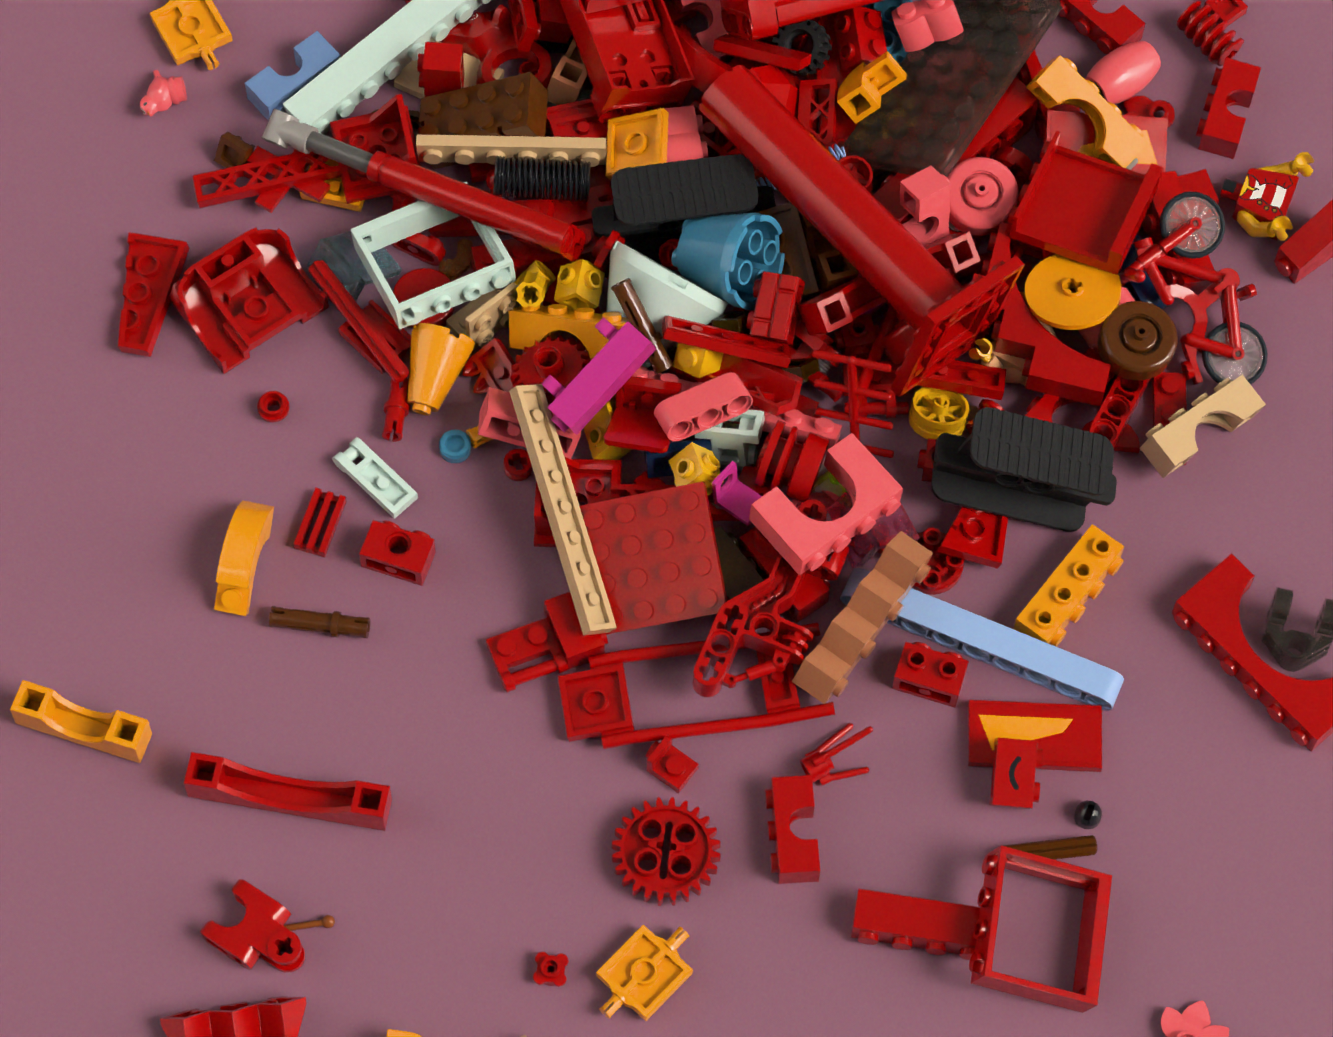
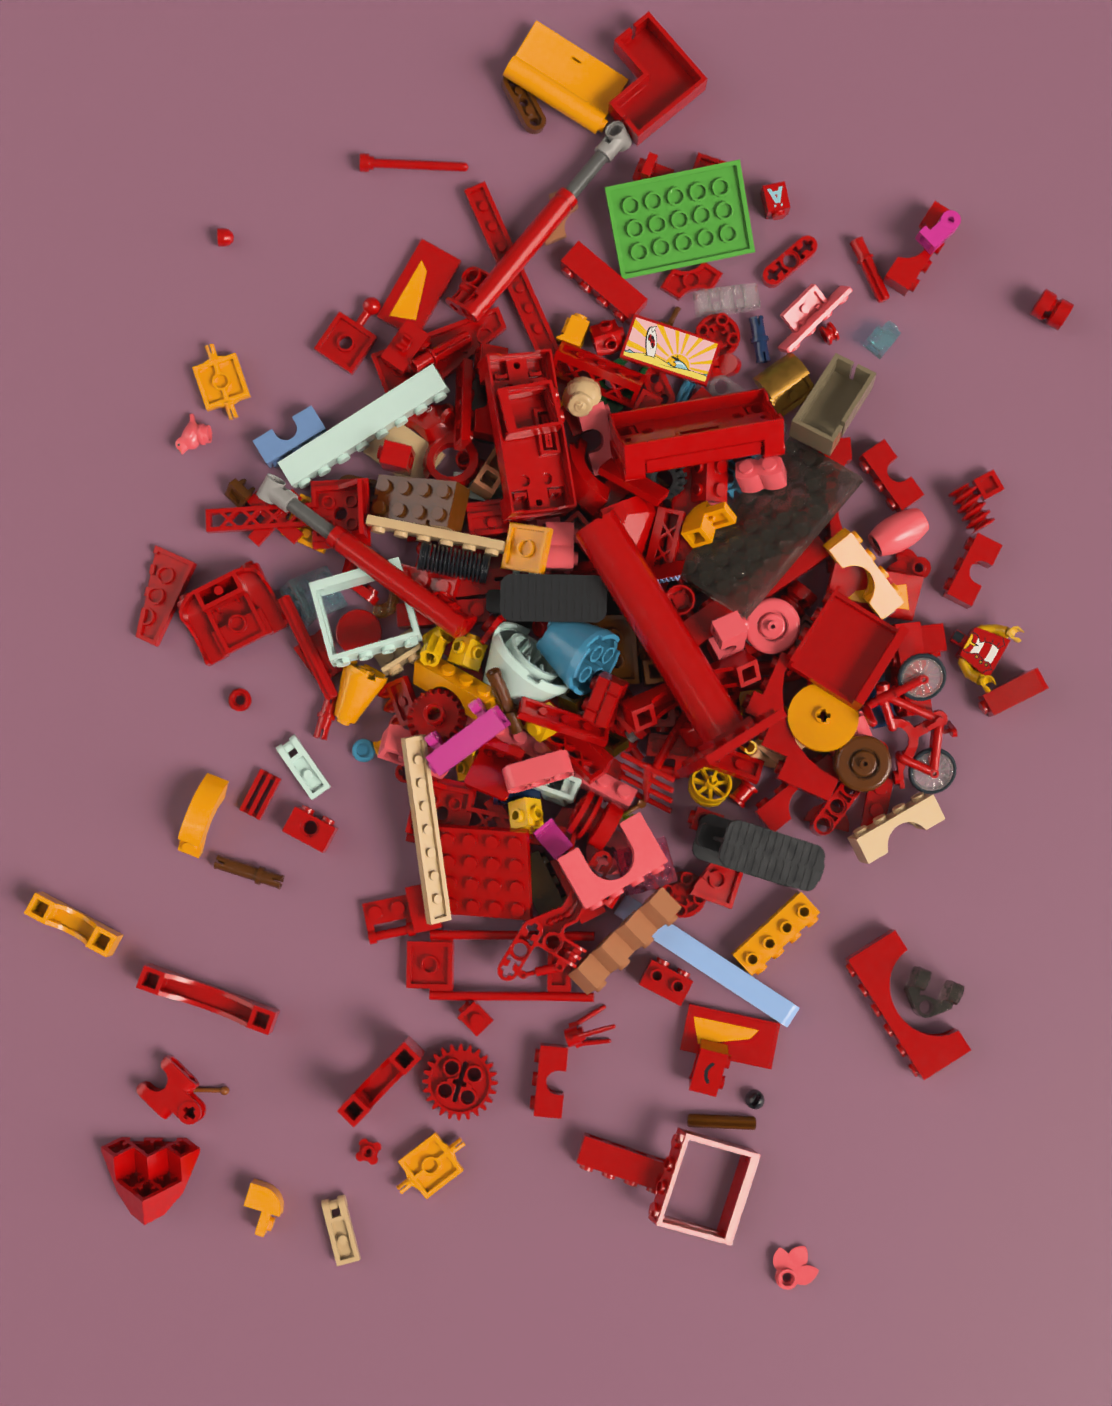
camera: 15 degrees right, 20 degrees up
(532, 887) = (380, 1081): none -> red arch

